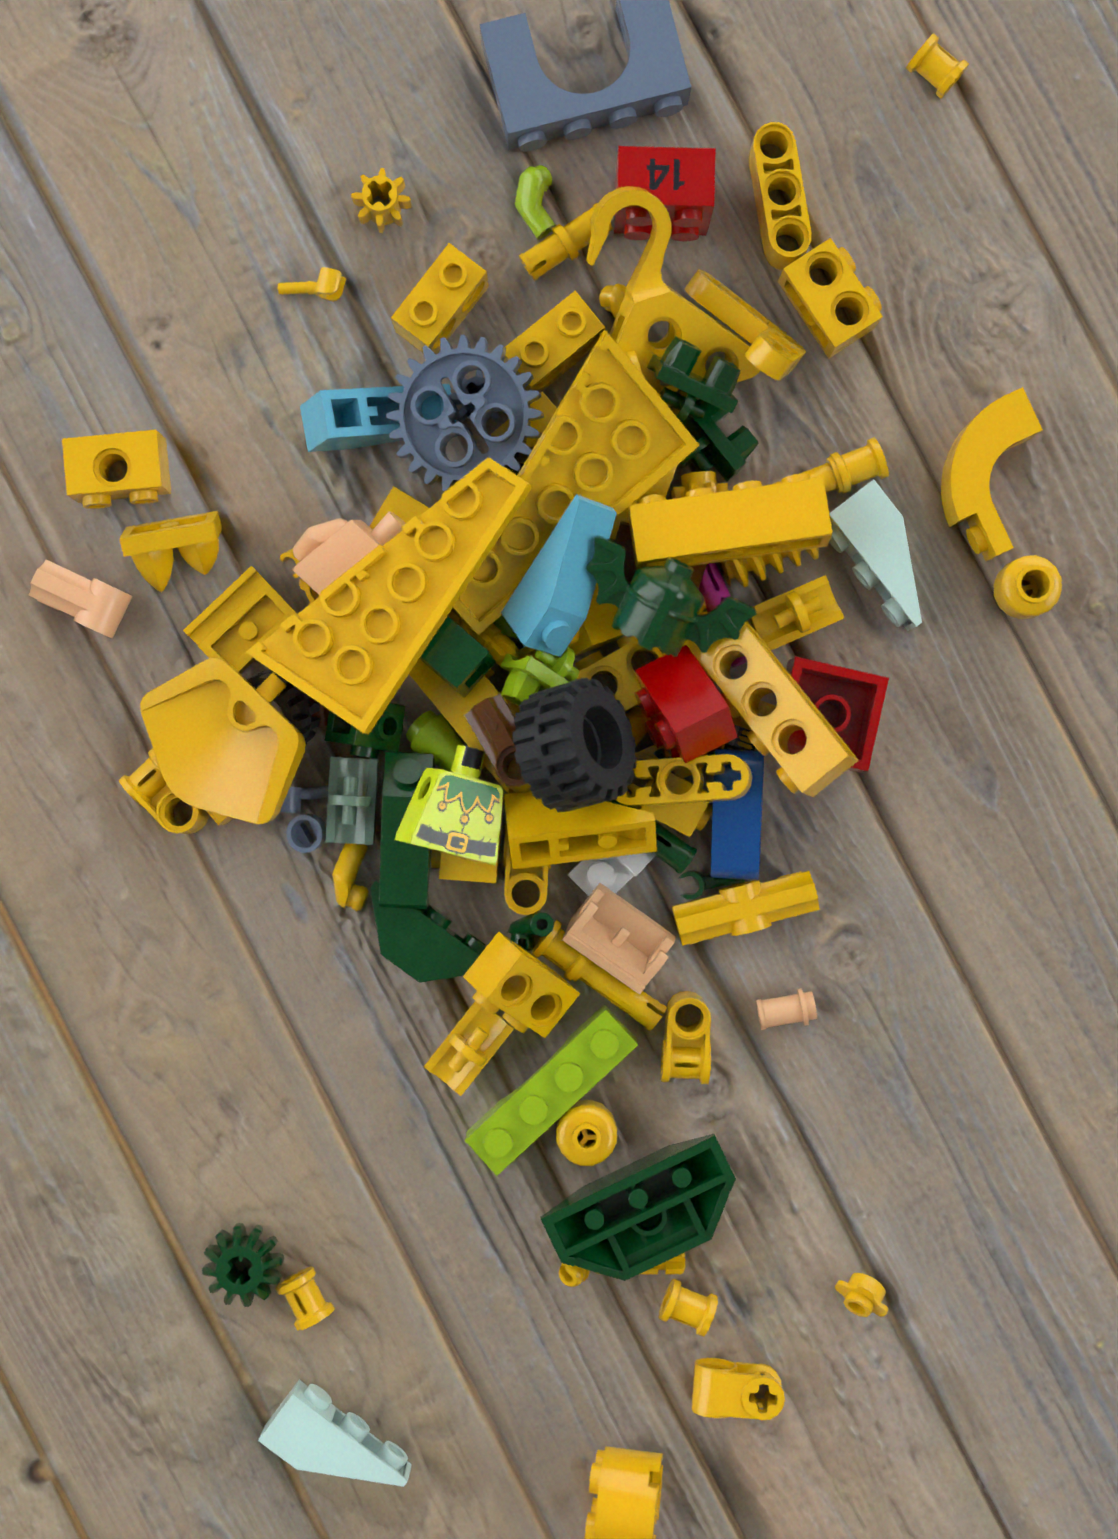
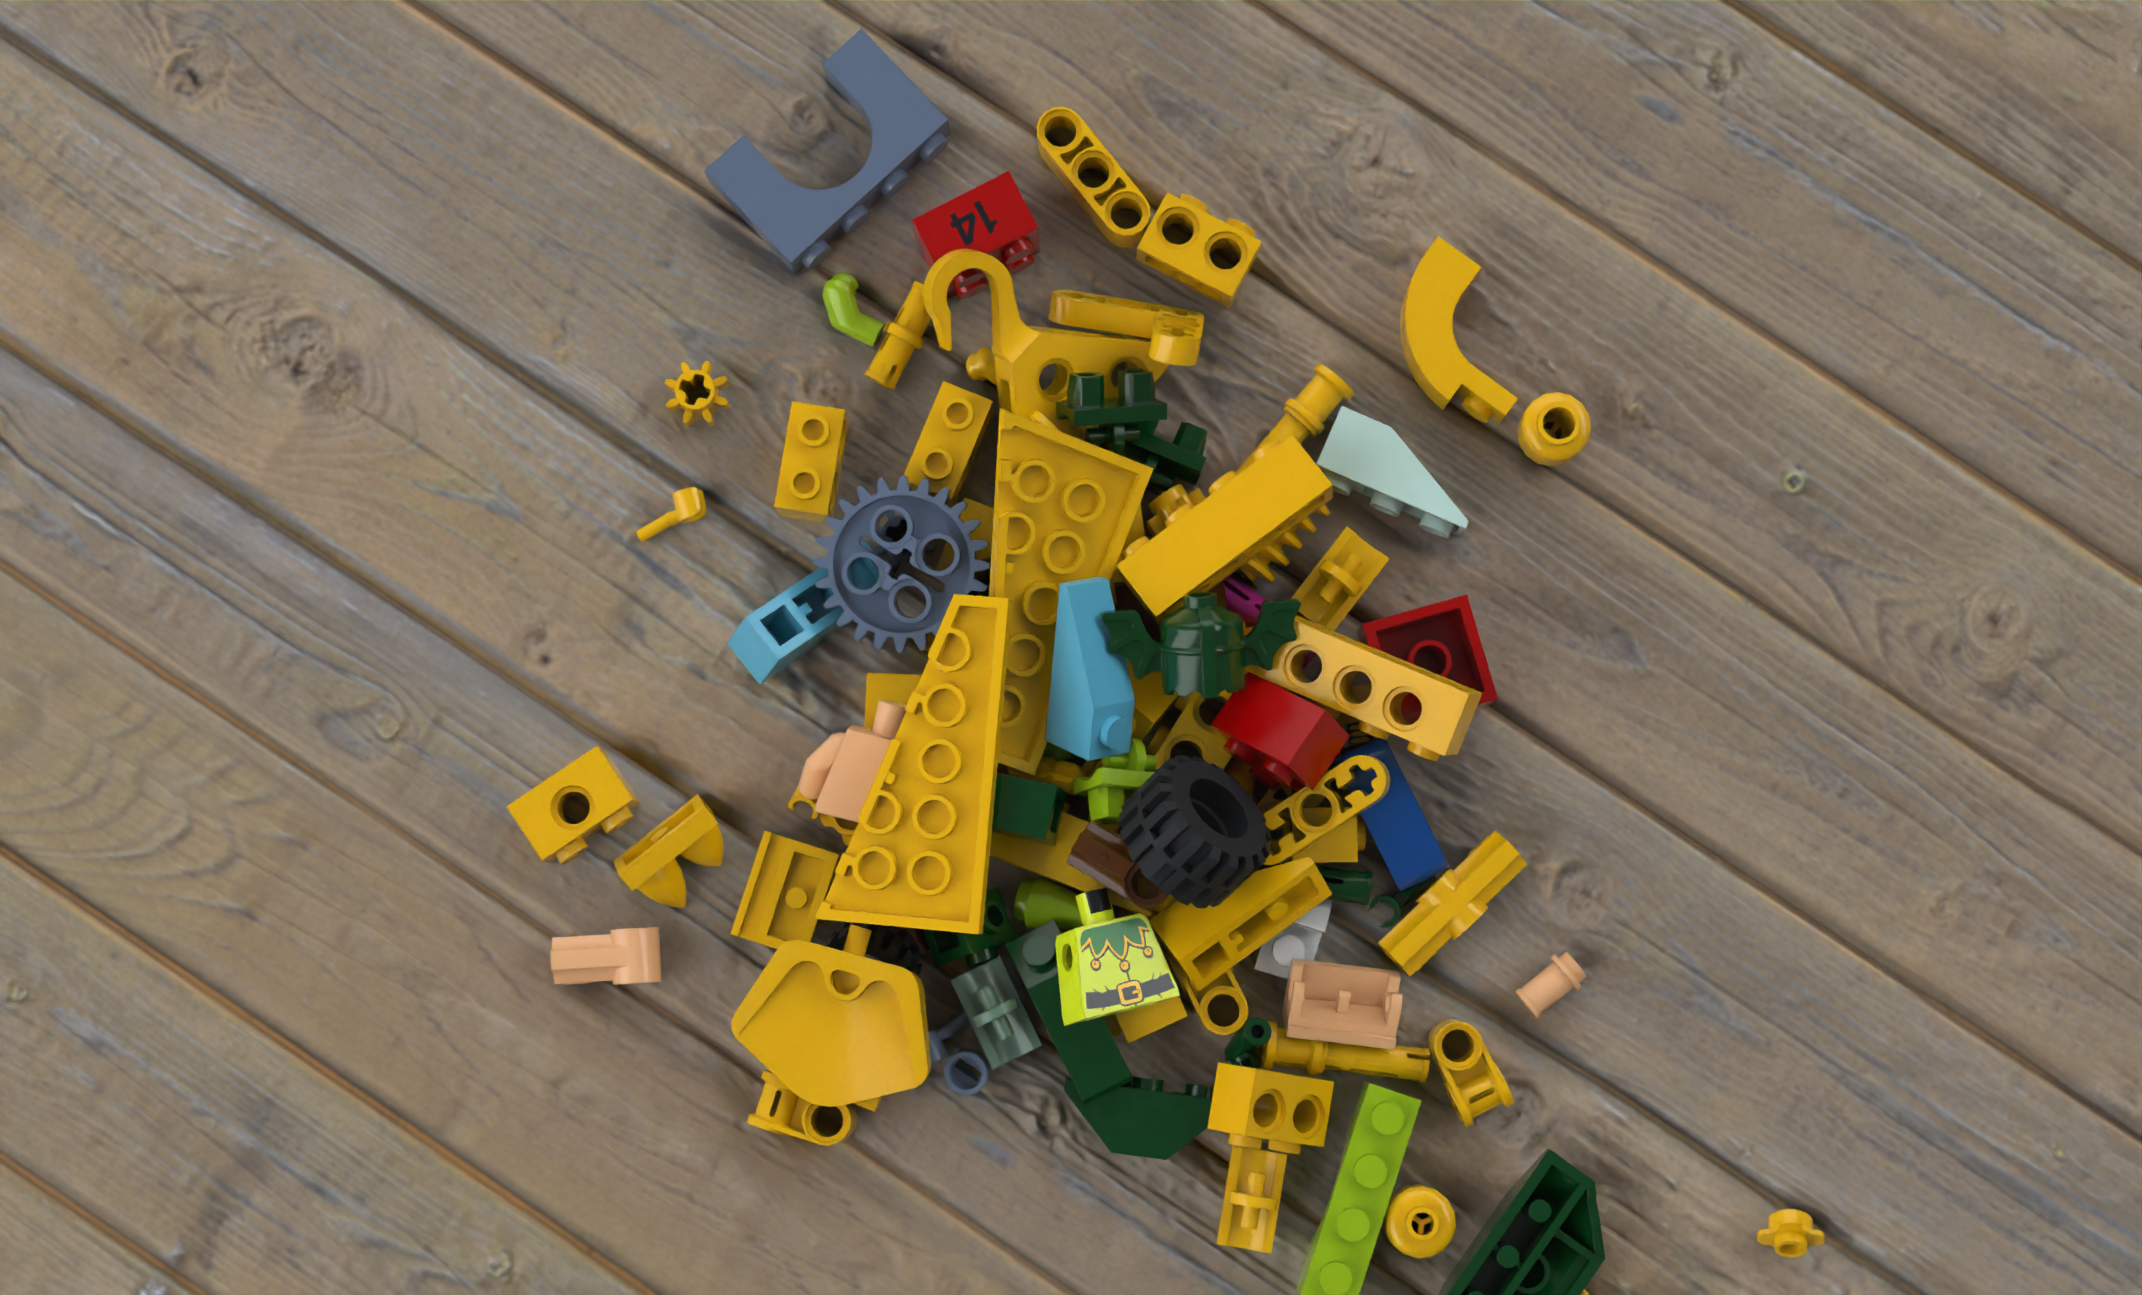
camera: 20 degrees left, 5 degrees down
(345, 874) = (1029, 1093): yellow arm -> none

